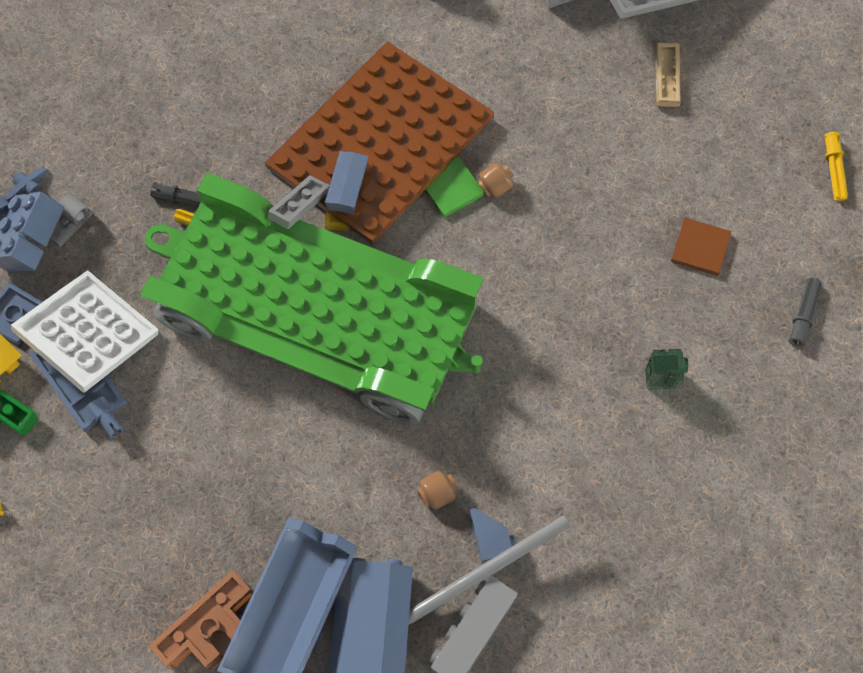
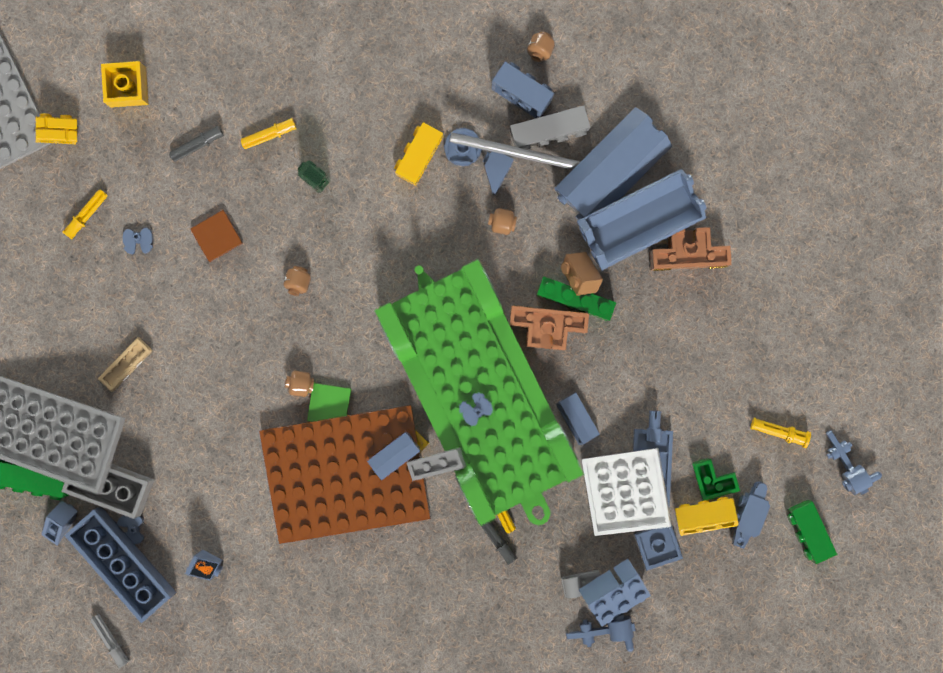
camera: 140 degrees left, 20 degrees up
(193, 365) = (577, 419): none -> sand blue piece
(292, 475) = (566, 296): none -> green brick
(297, 280) = (482, 407): none -> sand blue piece
(300, 424) = (548, 327): none -> nougat piece
(308, 501) = (581, 273): none -> medium nougat brick
(538, 643) = (522, 90): none -> sand blue brick
(556, 546) = (461, 154): none -> sand blue tile
(585, 485) = (418, 153): none -> yellow brick
(586, 266) = (297, 280): none -> medium nougat head
(745, 387) = (269, 133): none -> yellow axle
(764, 190) = (144, 238): none -> sand blue piece

